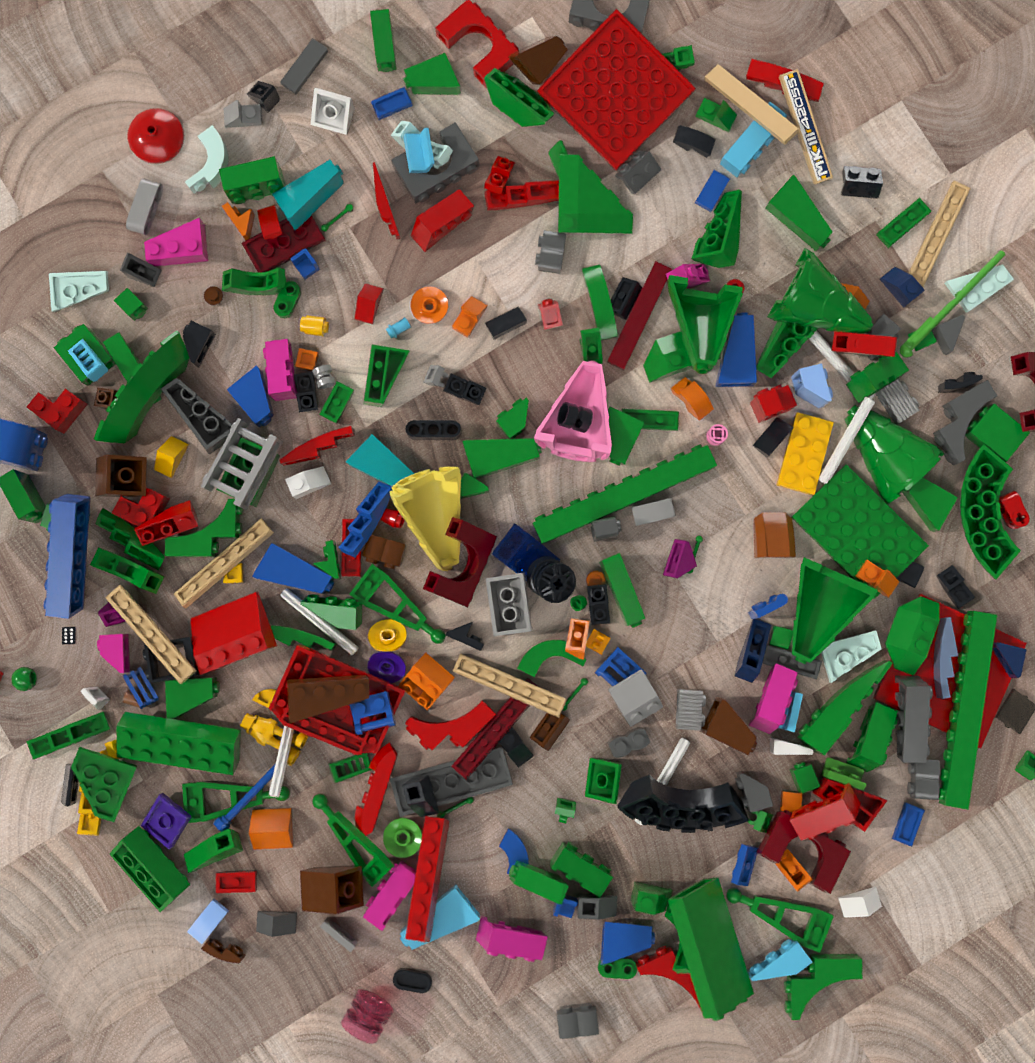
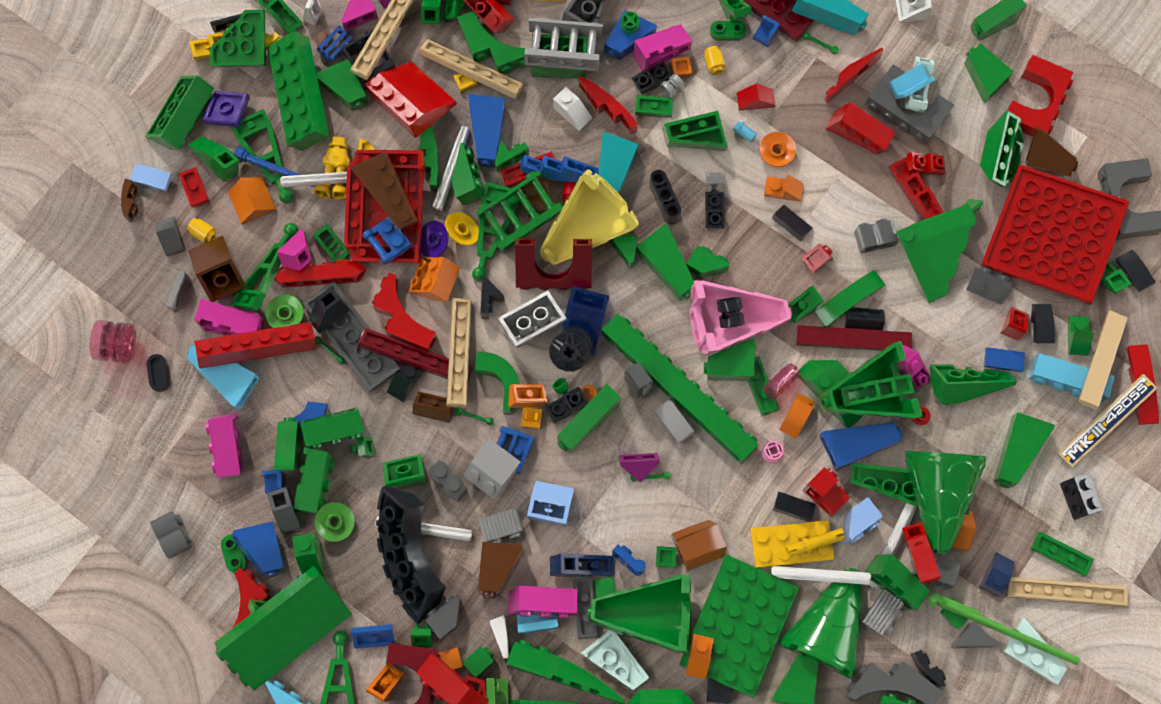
camera: 70 degrees right, 10 degrees down
(241, 388) = (630, 18): none -> green wheel
(285, 889) = (201, 230): none -> yellow brick
(348, 805) = (295, 252): none -> dark pink slope
(391, 103) = (946, 48): blue tile -> none
(408, 561) = (521, 230): none -> green fence
(538, 833) = (332, 427): none -> green brick
(634, 862) = (344, 519): none -> bright green dish
(655, 398) = (781, 381): none -> clear pink axle
(678, 35) = (1136, 270): none -> black slope
(684, 164) = (1015, 324): none -> red slope
(686, 655) = (550, 503): none -> light blue slope
(703, 317) = (876, 390): none -> green slope
(774, 571) = (666, 557): none -> green plate
(815, 433) = (807, 545): none -> yellow pin

